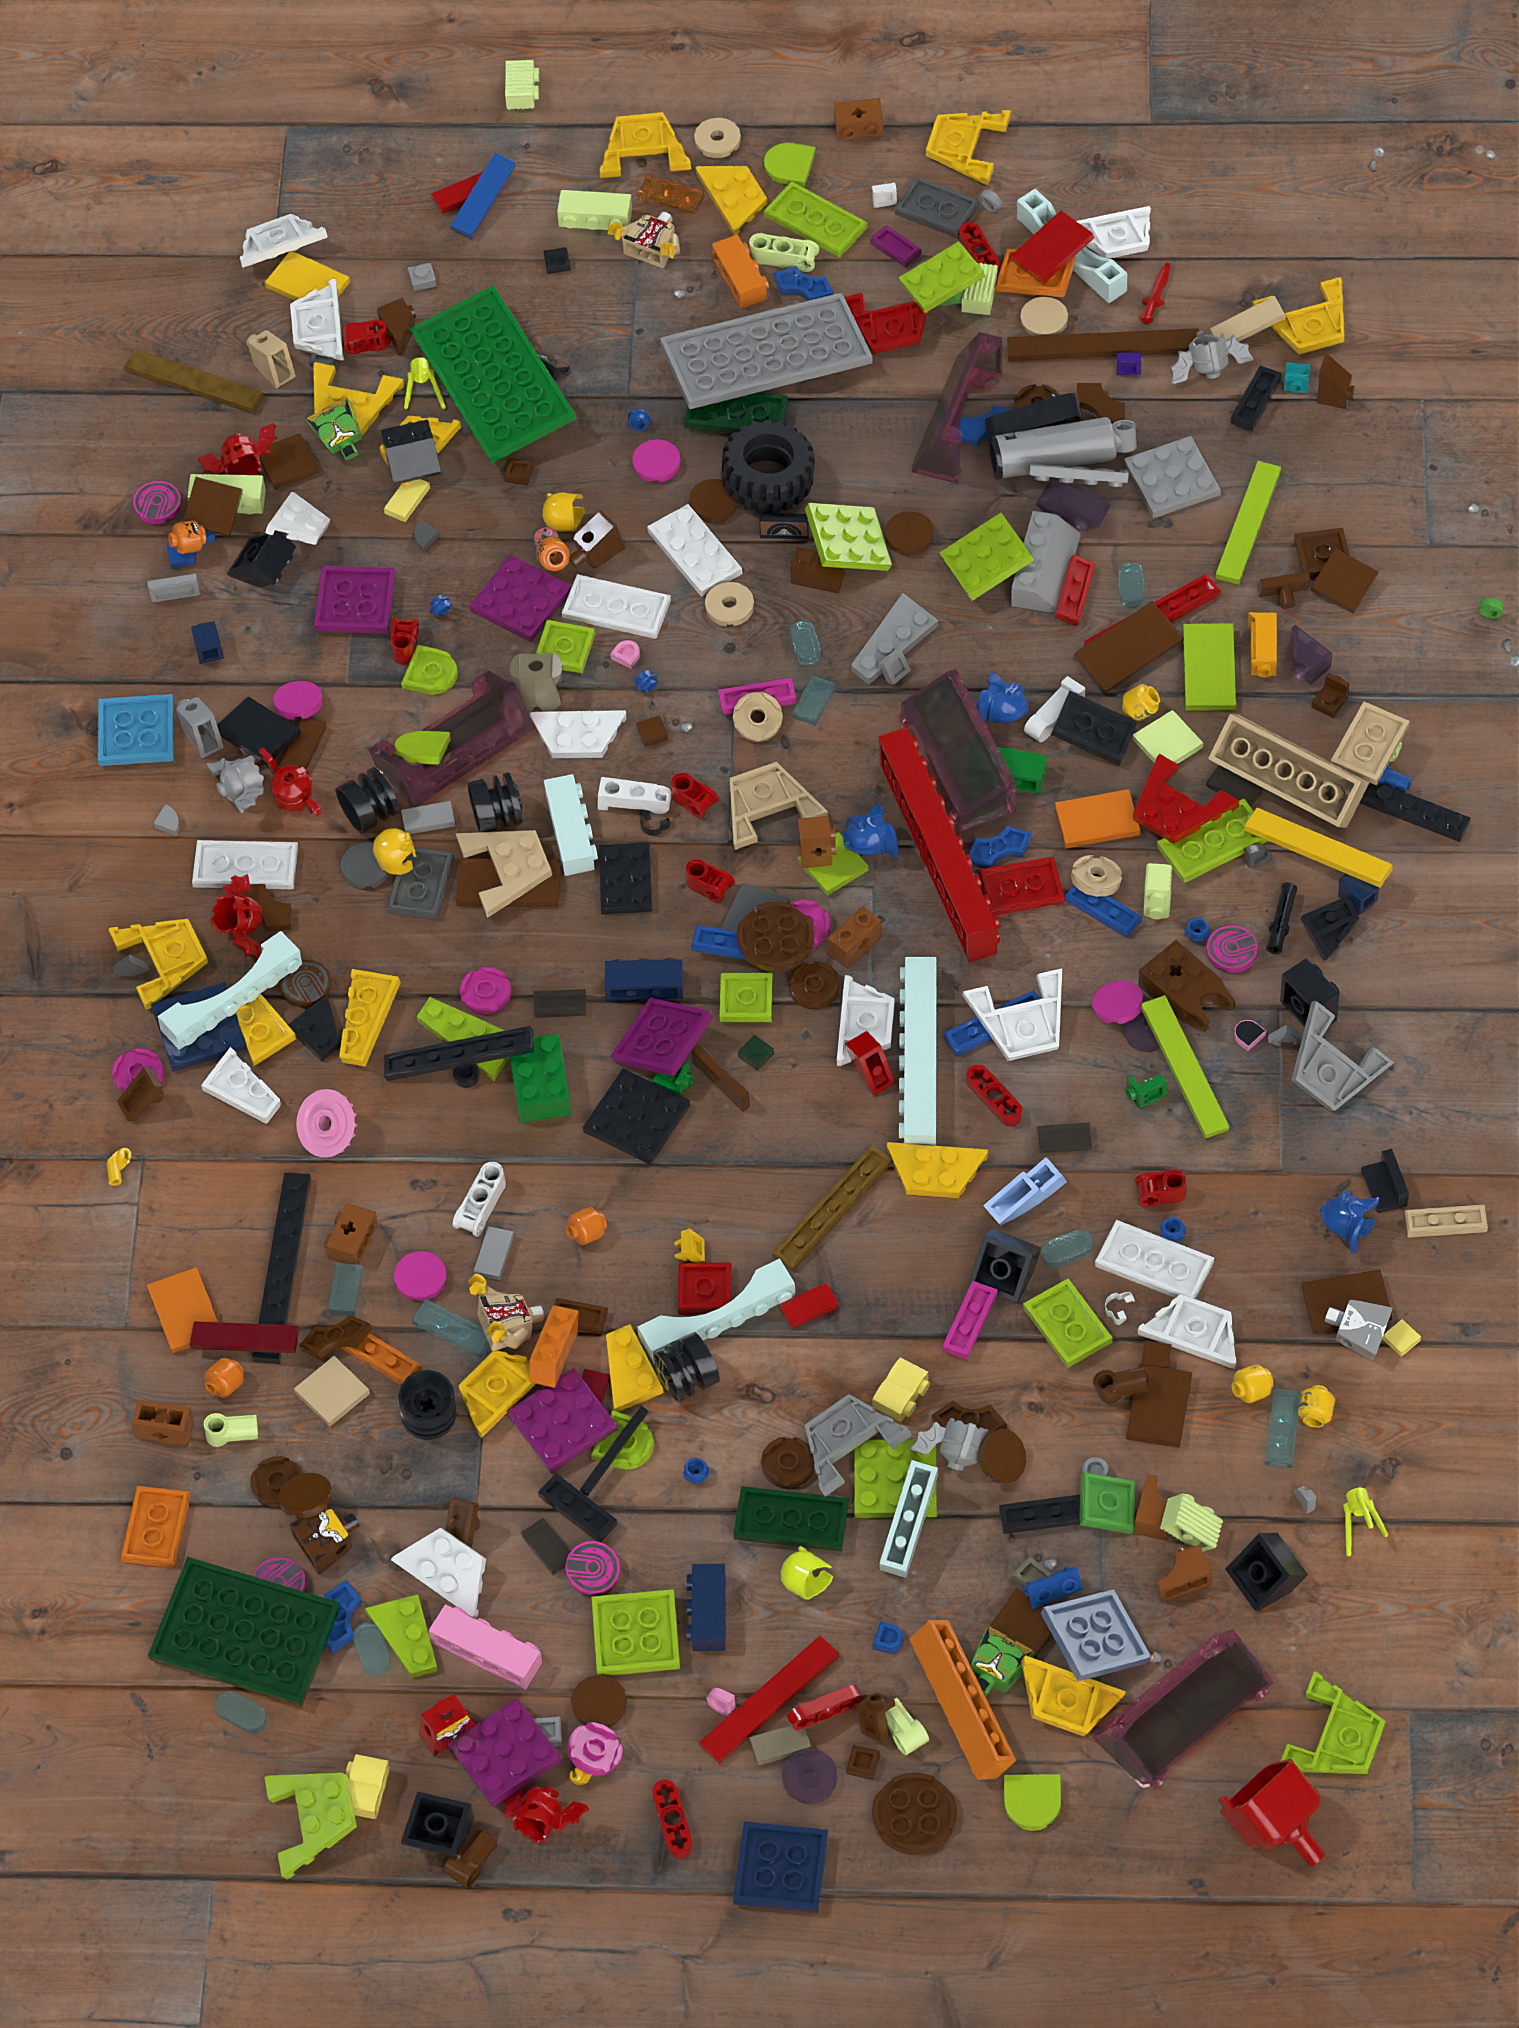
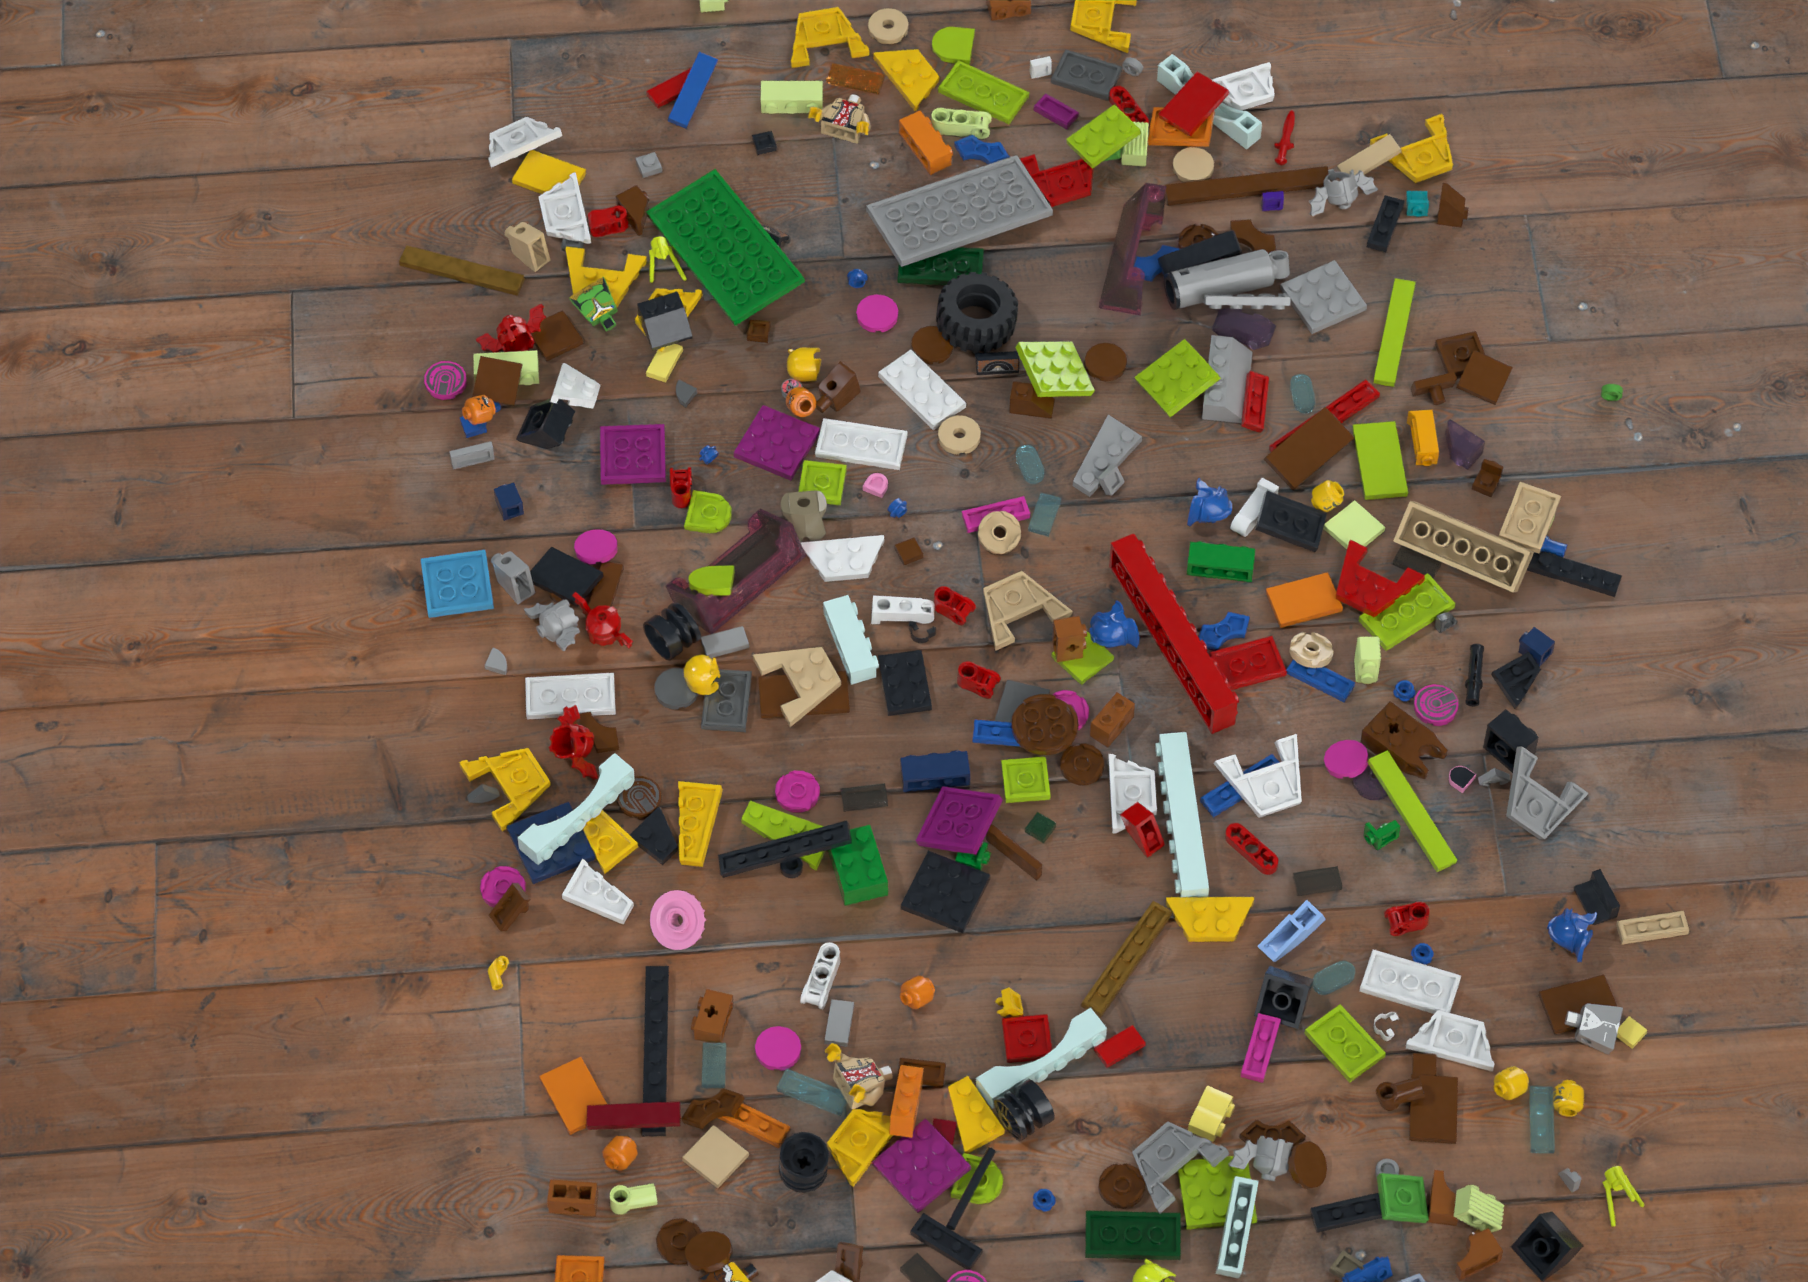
camera: 10 degrees left, 0 degrees up
(495, 802) = (788, 623): black wheel -> none
(960, 751) = (1180, 549): windscreen -> none
(1318, 847) = (1499, 611): yellow tile -> none

